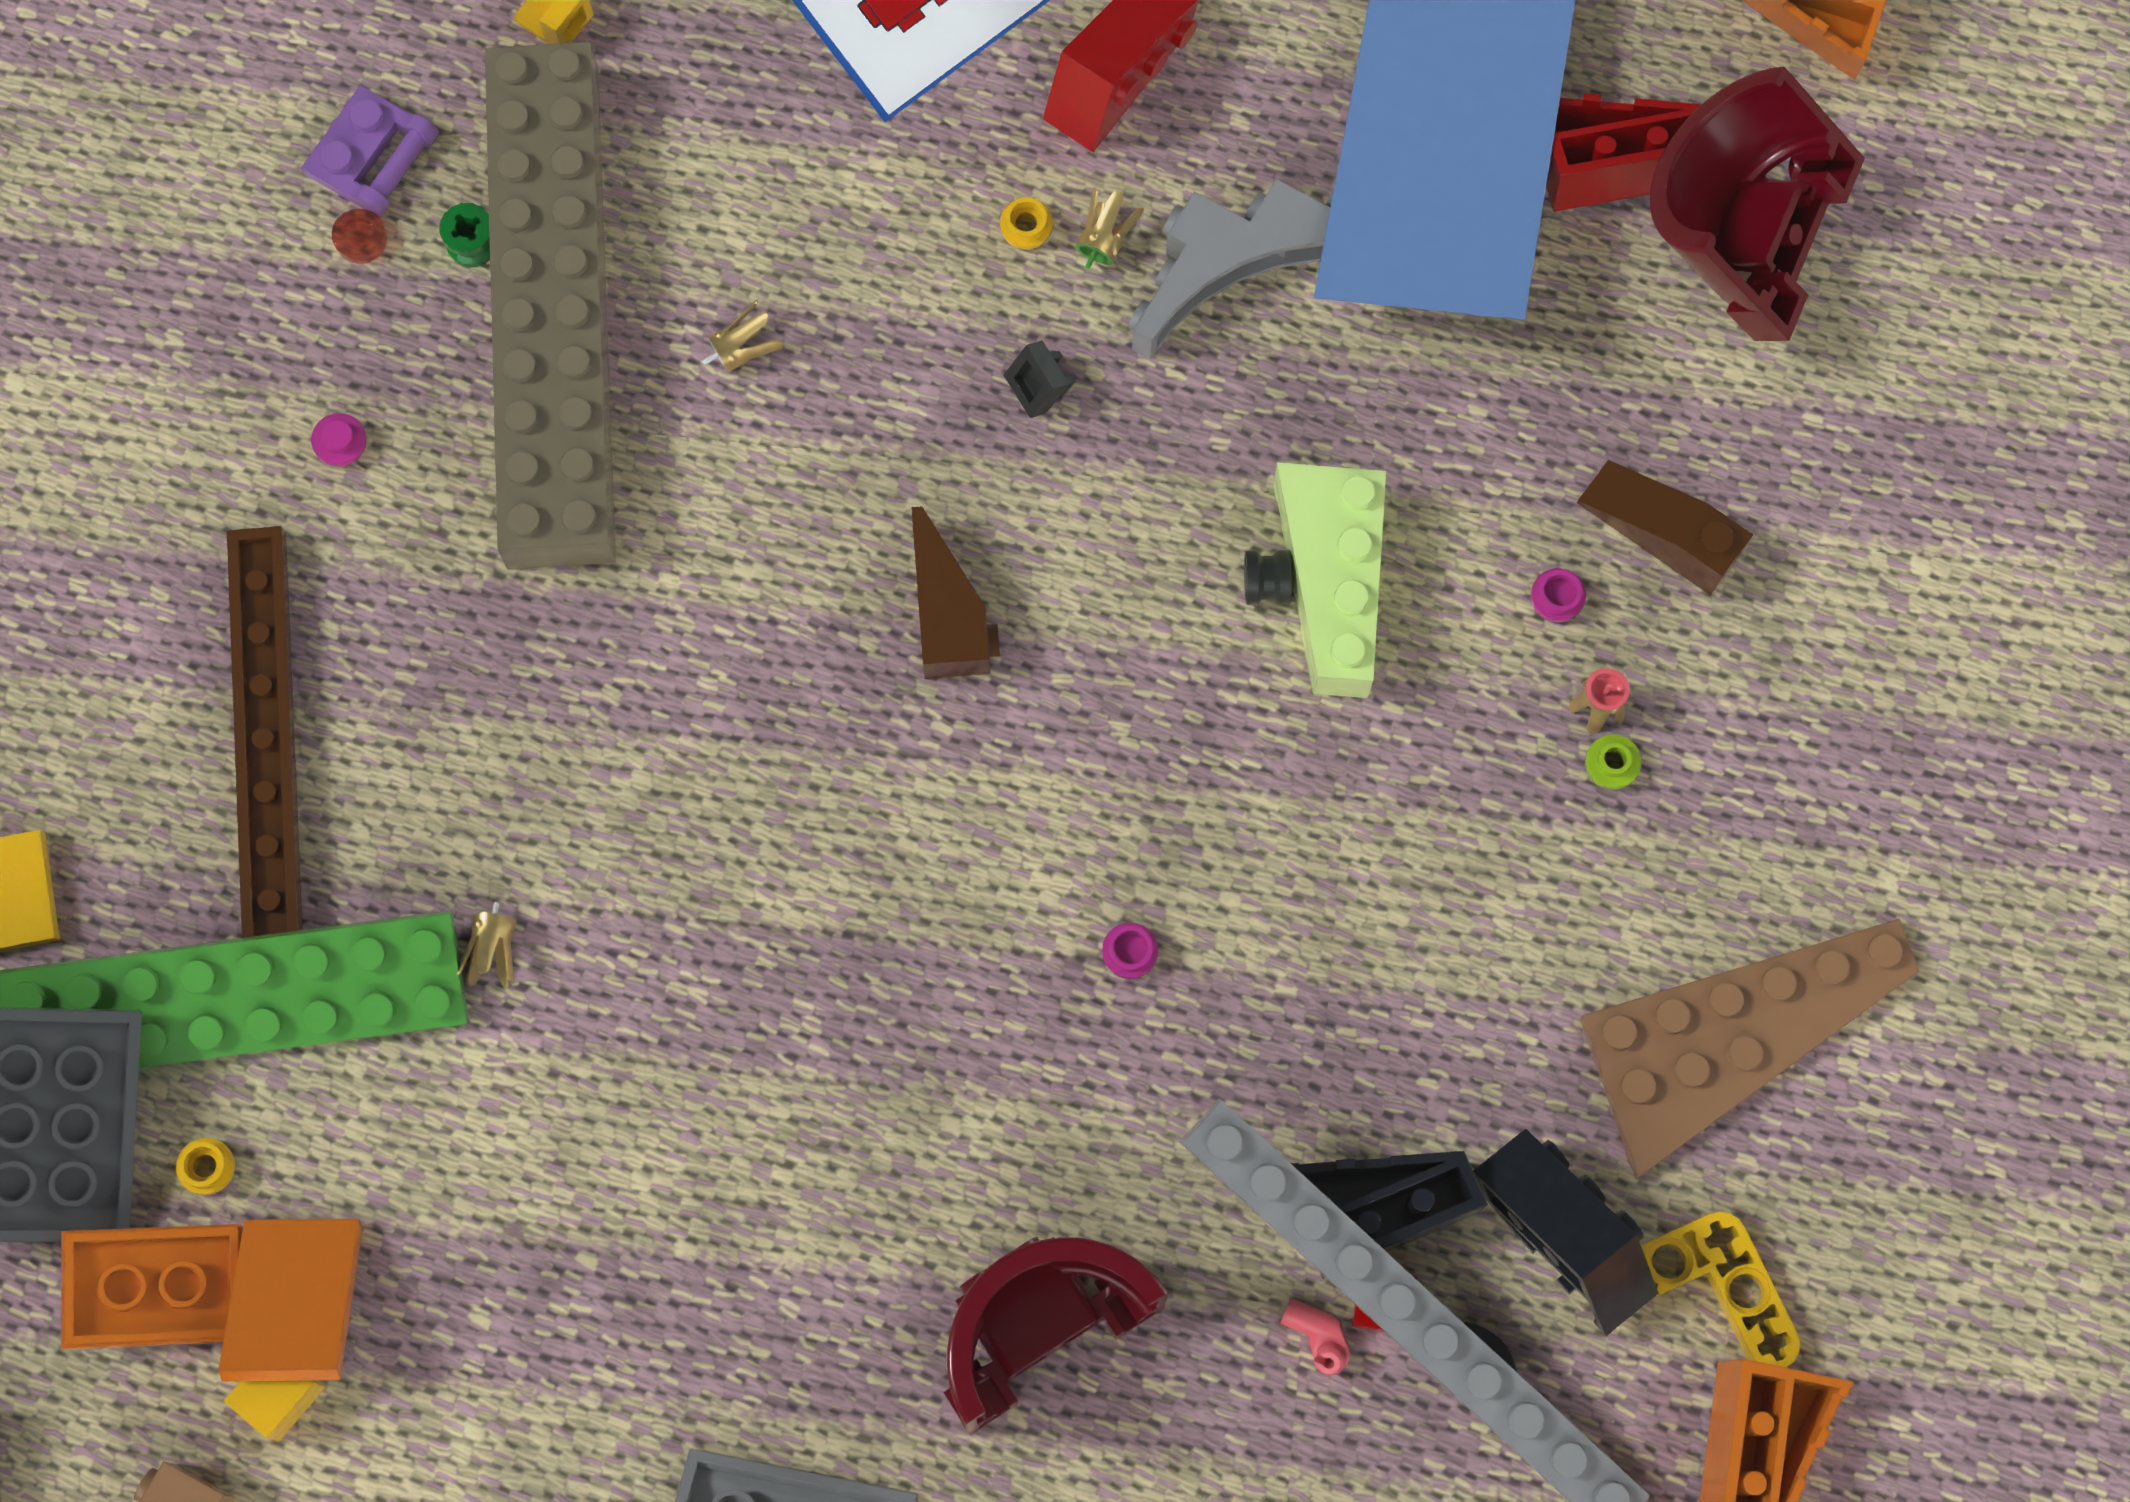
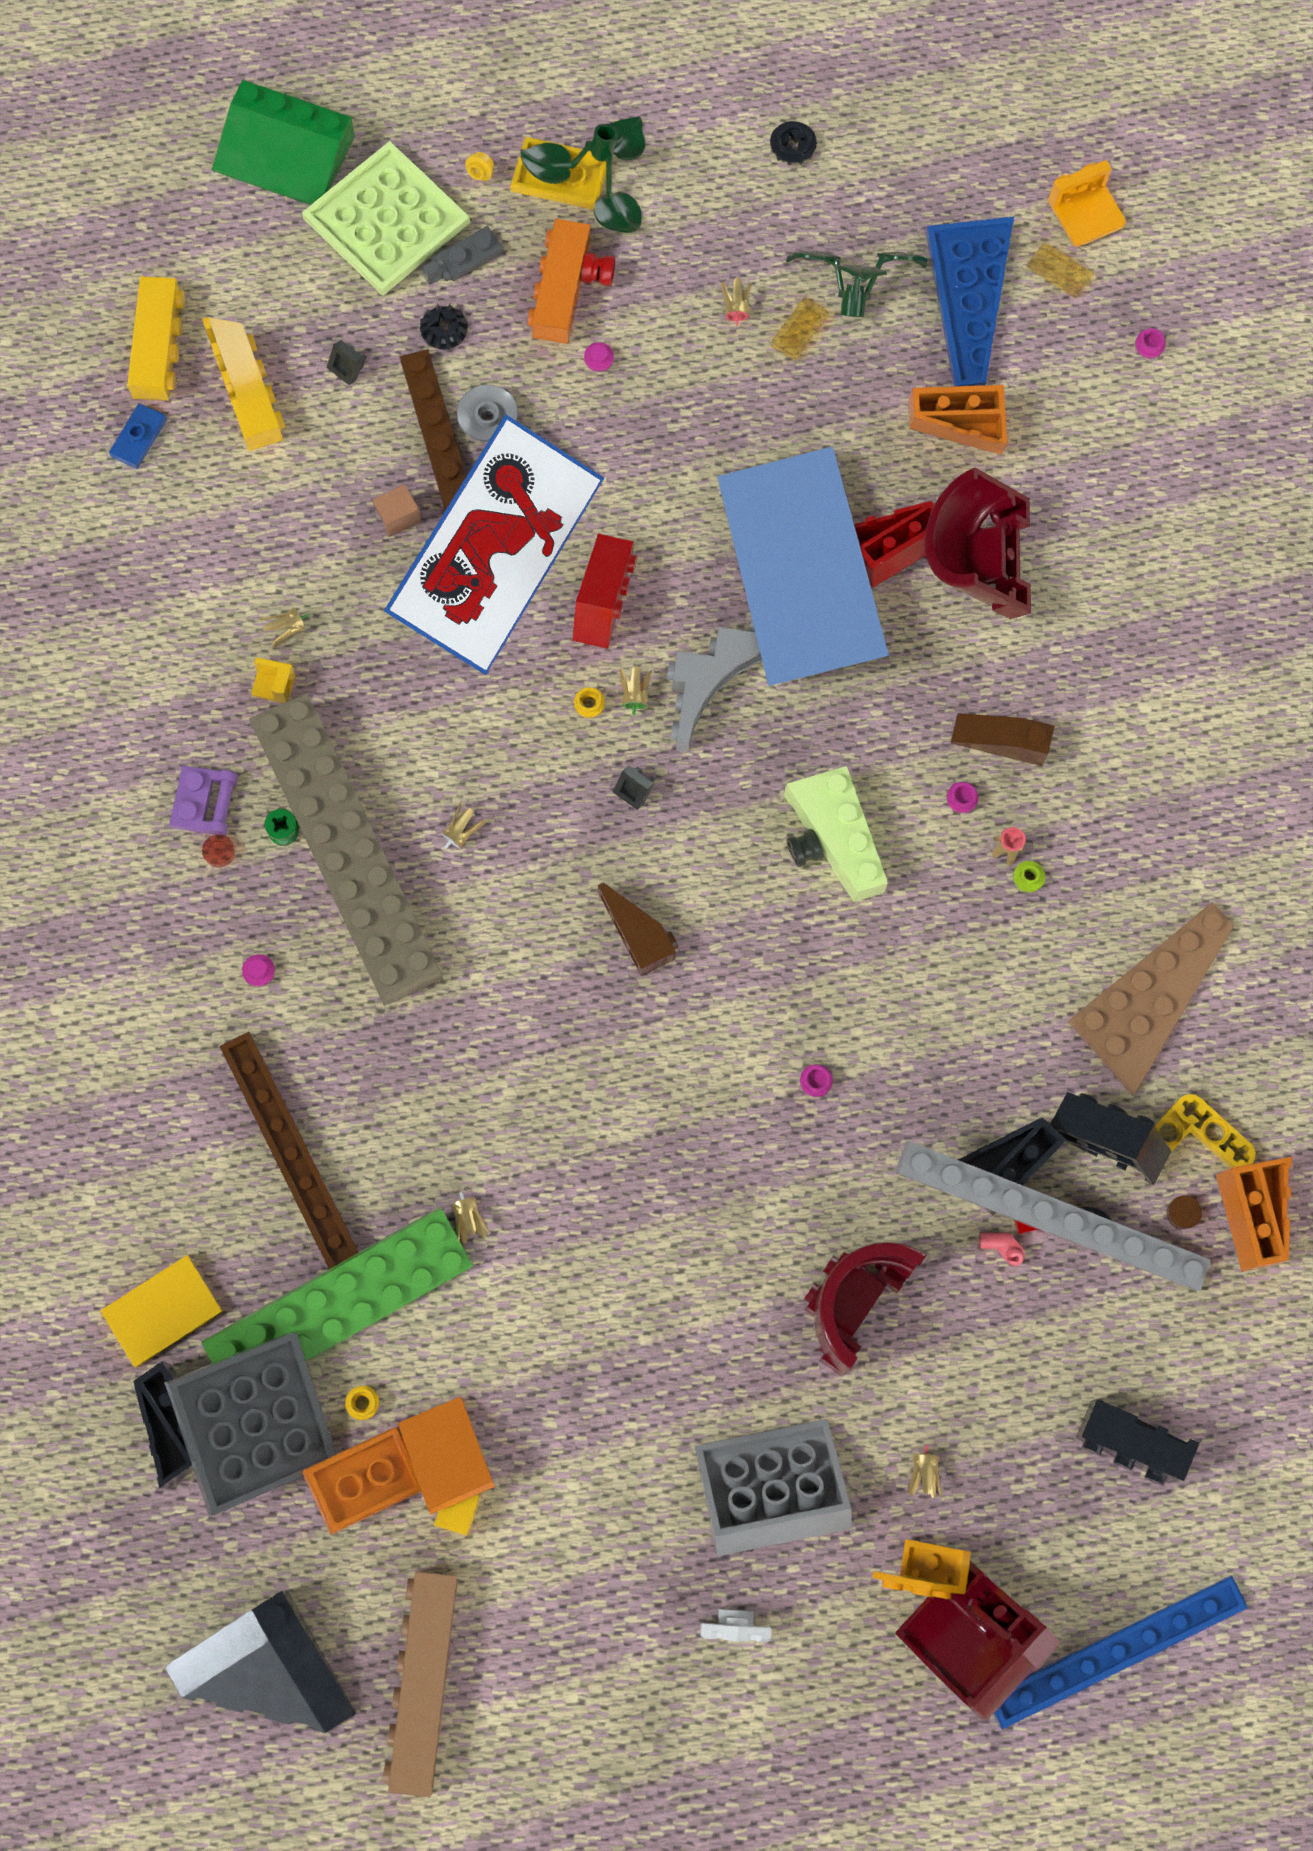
camera: 25 degrees left, 0 degrees up
(1639, 1401) = (1184, 1212): none -> reddish brown tile

